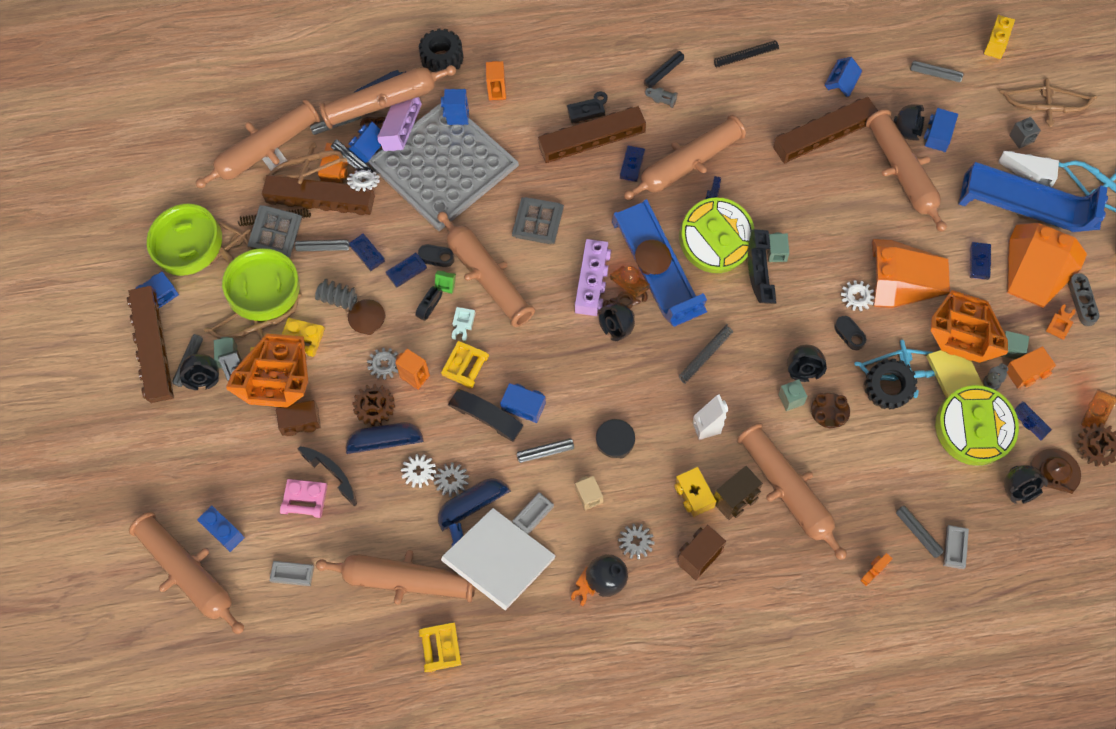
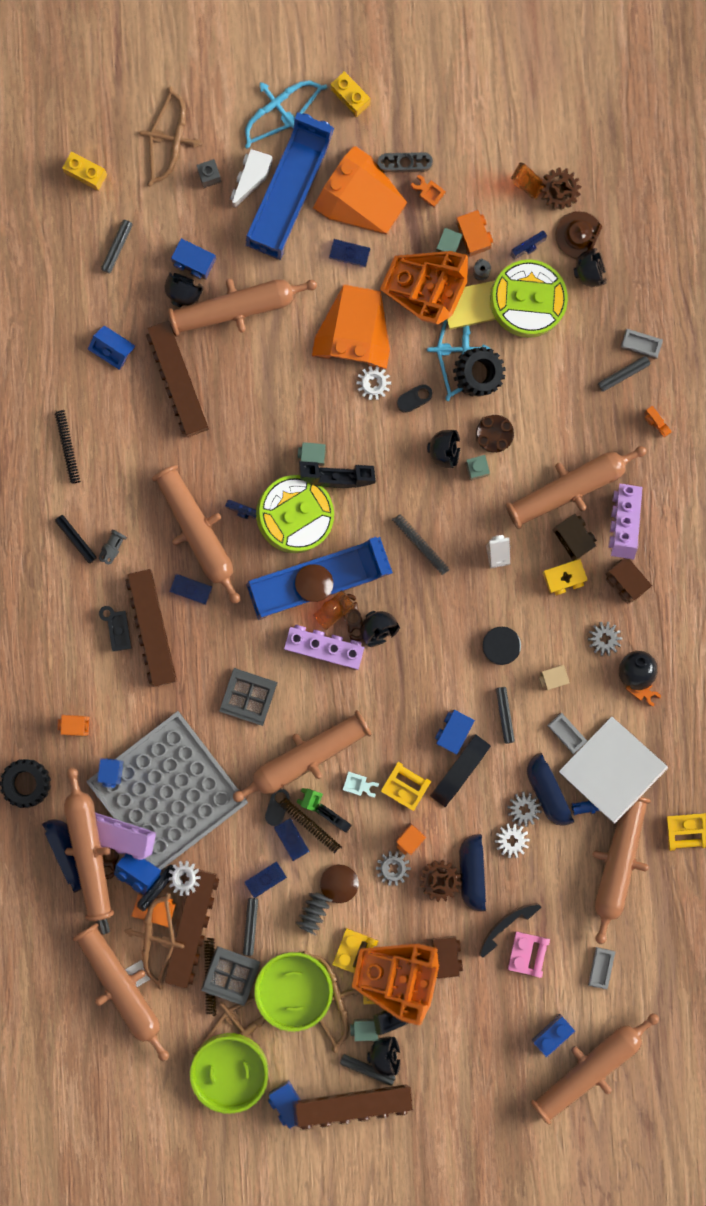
camera: 90 degrees left, 20 degrees up
(412, 287) = (311, 822): none -> dark brown piece
(763, 540) = (626, 521): none -> lavender brick

